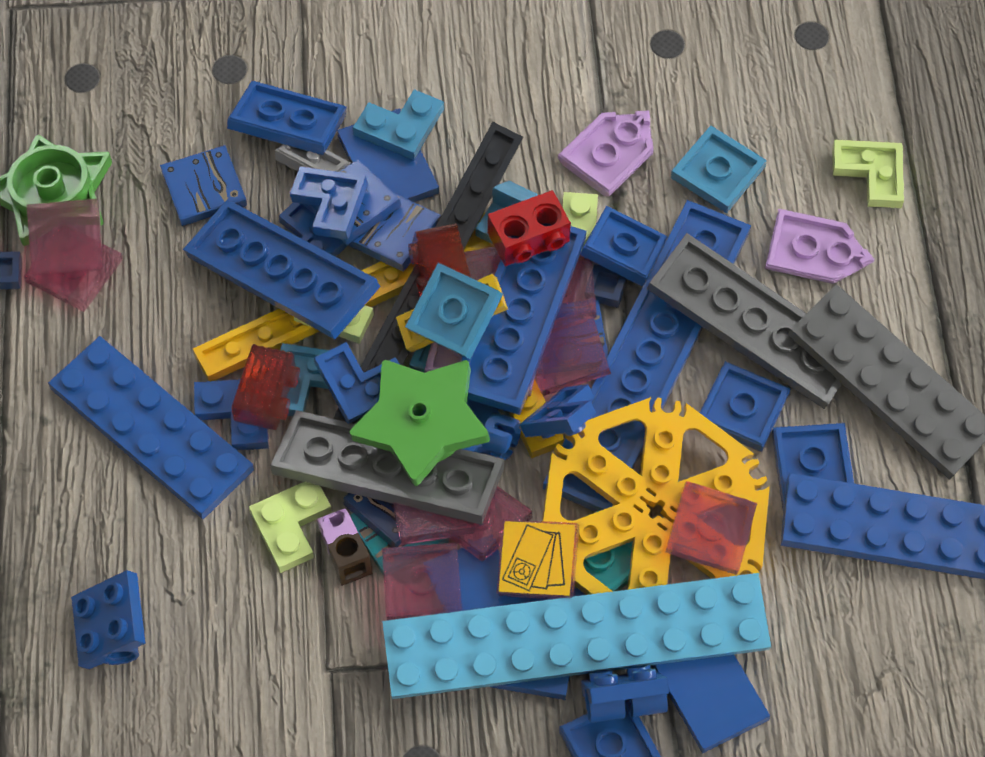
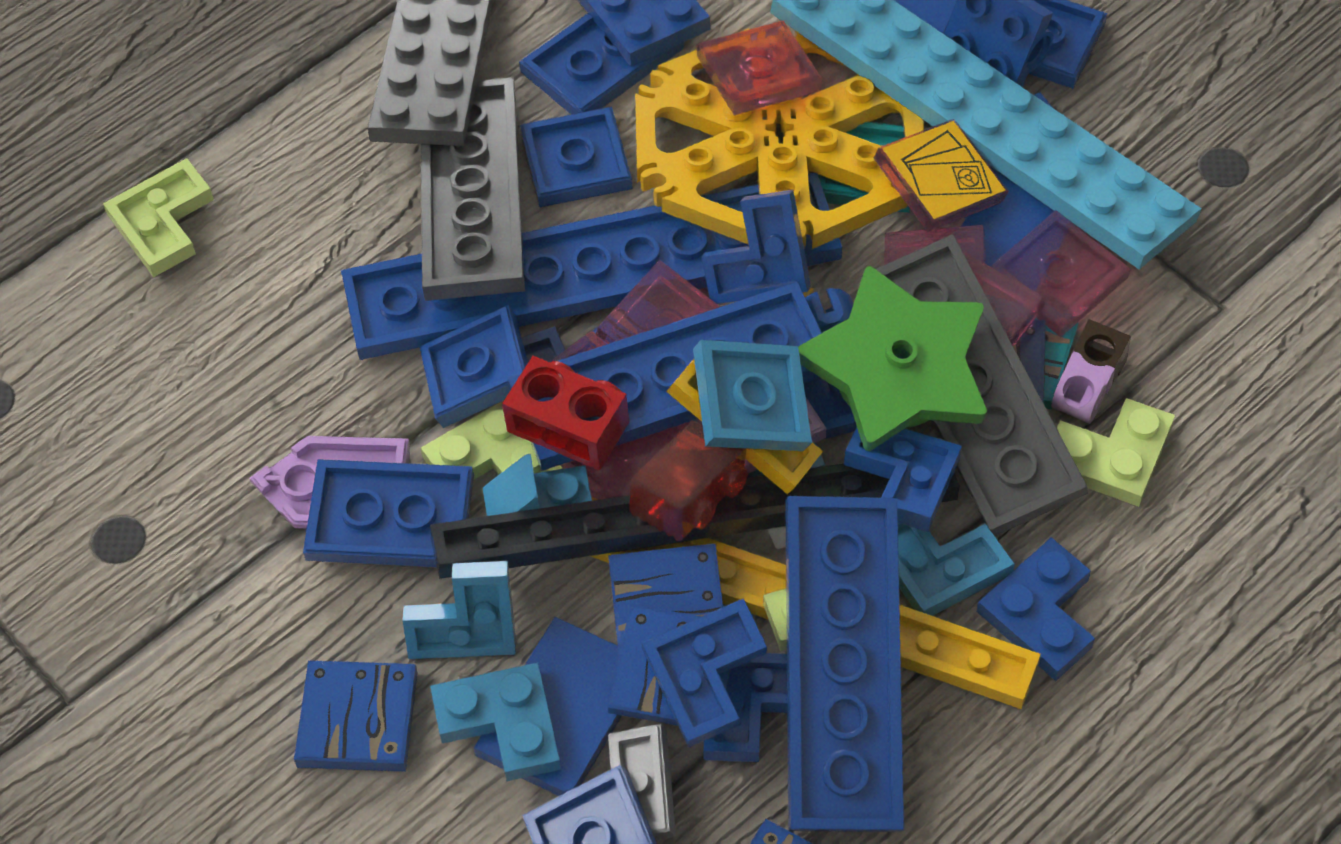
camera: 125 degrees left, 5 degrees down
(151, 427) = (1151, 687): blue plate -> none
(265, 387) = (1006, 561): clear red brick -> none
(466, 77) = (356, 716): none -> blue tile
(468, 140) = (473, 625): none -> dark azure plate
(566, 150) = (383, 510): none -> blue tile
(718, 169) = (281, 355): dark azure plate -> none
(815, 248) = (316, 214): lavender tile -> none

